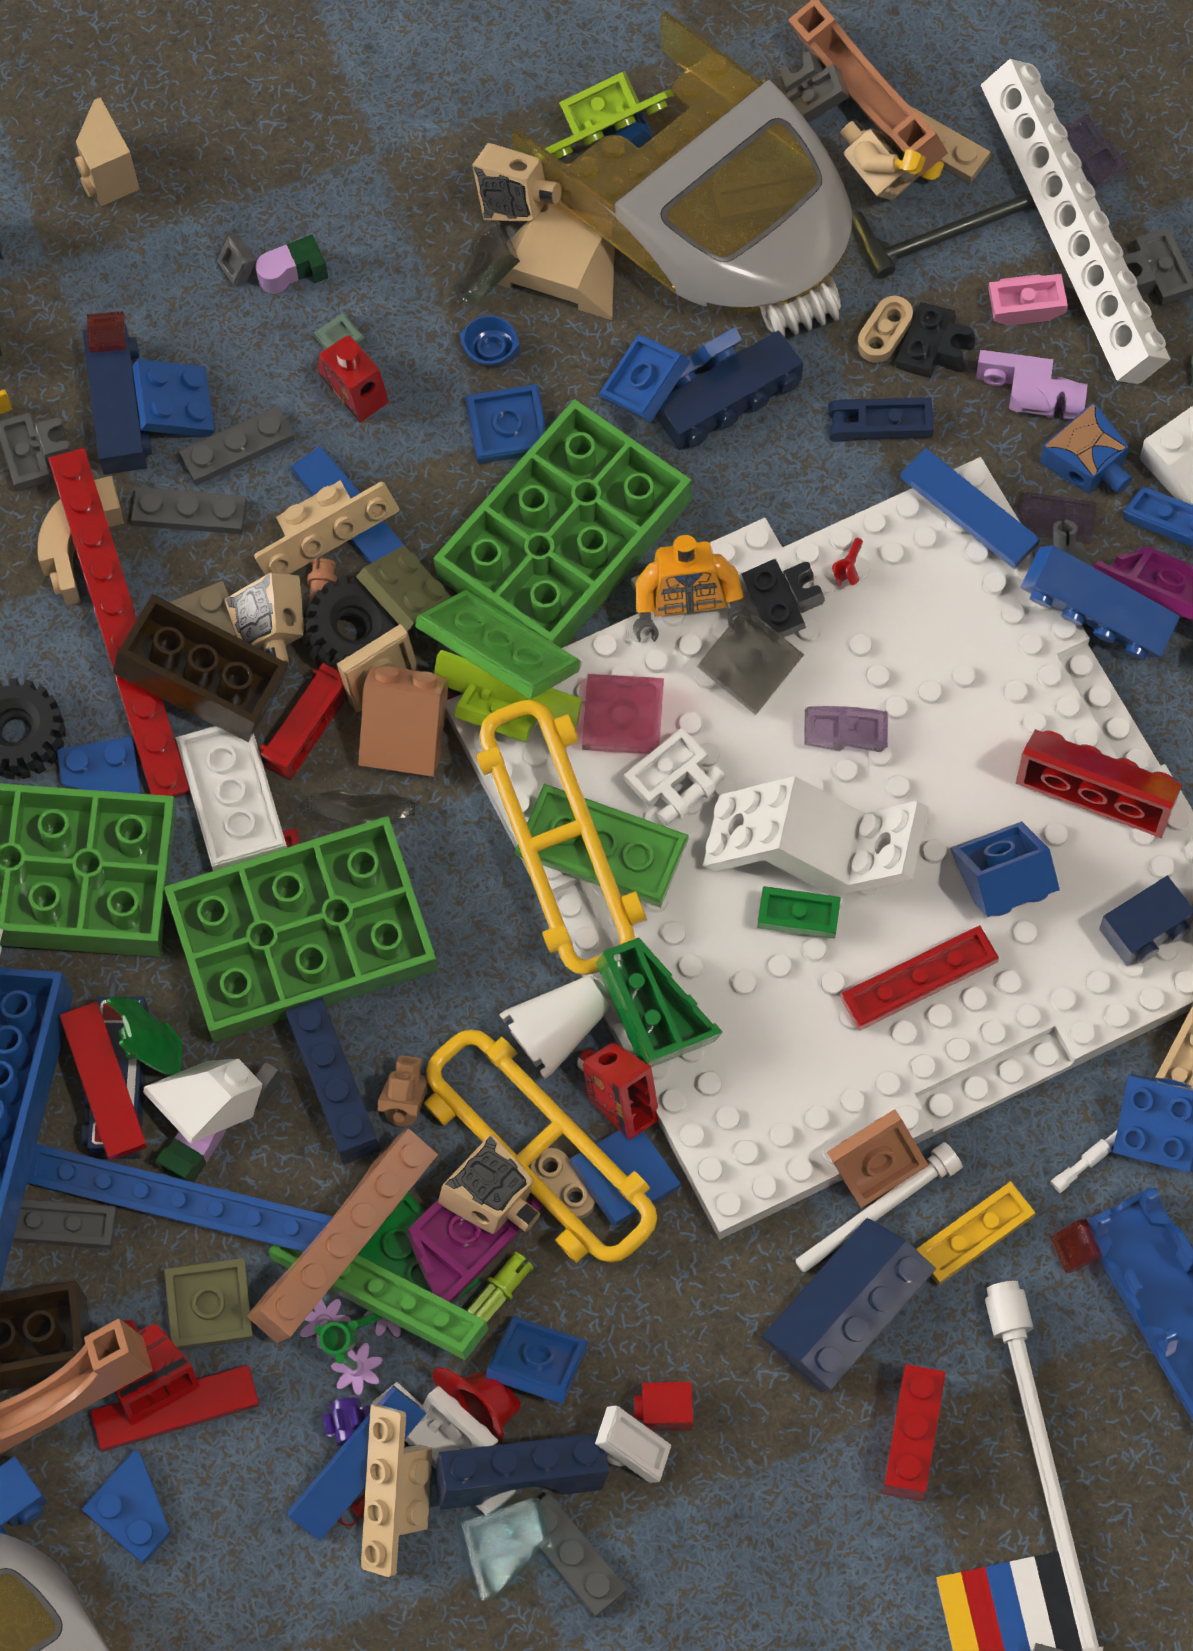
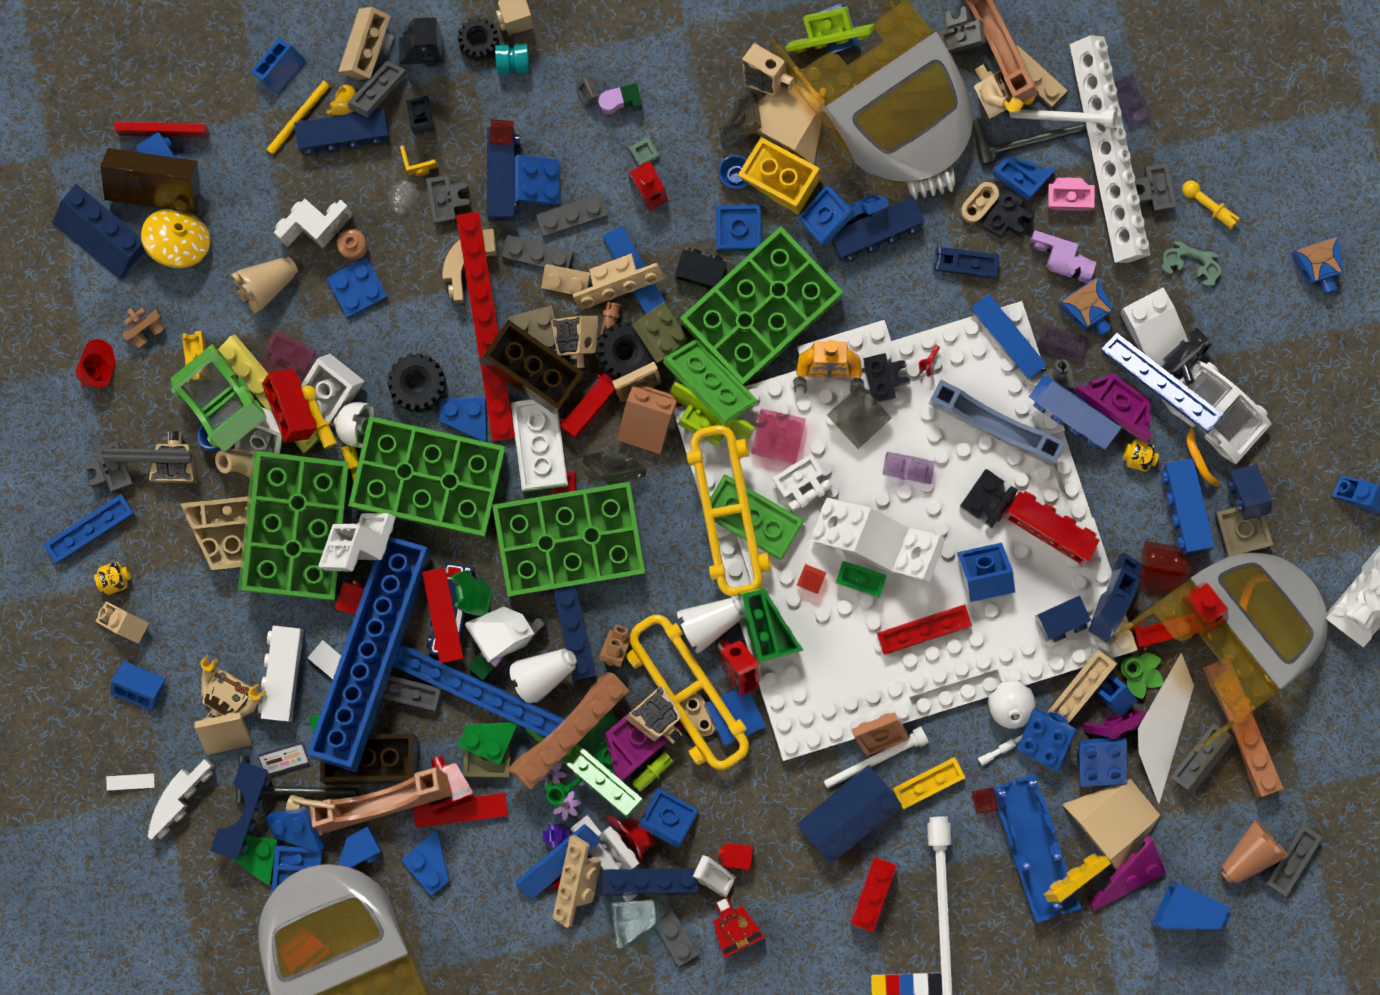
camera: 10 degrees right, 15 degrees up
(47, 196) = (474, 26): none -> black tyre
(110, 231) = (512, 59): none -> teal wheel
(207, 1276) = (488, 739): none -> green wing
(237, 538) = (564, 279): none -> tan plate
(285, 1147) = (541, 673): none -> white cone
(453, 489) = (700, 269): none -> black brick
(563, 333) = (780, 175): none -> yellow slope
(684, 1531) = (735, 928): none -> red torso
(716, 926) = (811, 579): none -> clear red tile
(945, 281) = (1022, 176): none -> blue wing
(974, 752) = (982, 494): none -> black plate
(1035, 653) = (1014, 433): none -> sand blue arch
(1060, 166) = (1107, 118): none -> white piece
(1089, 1078) = (1011, 704): none -> white cylinder

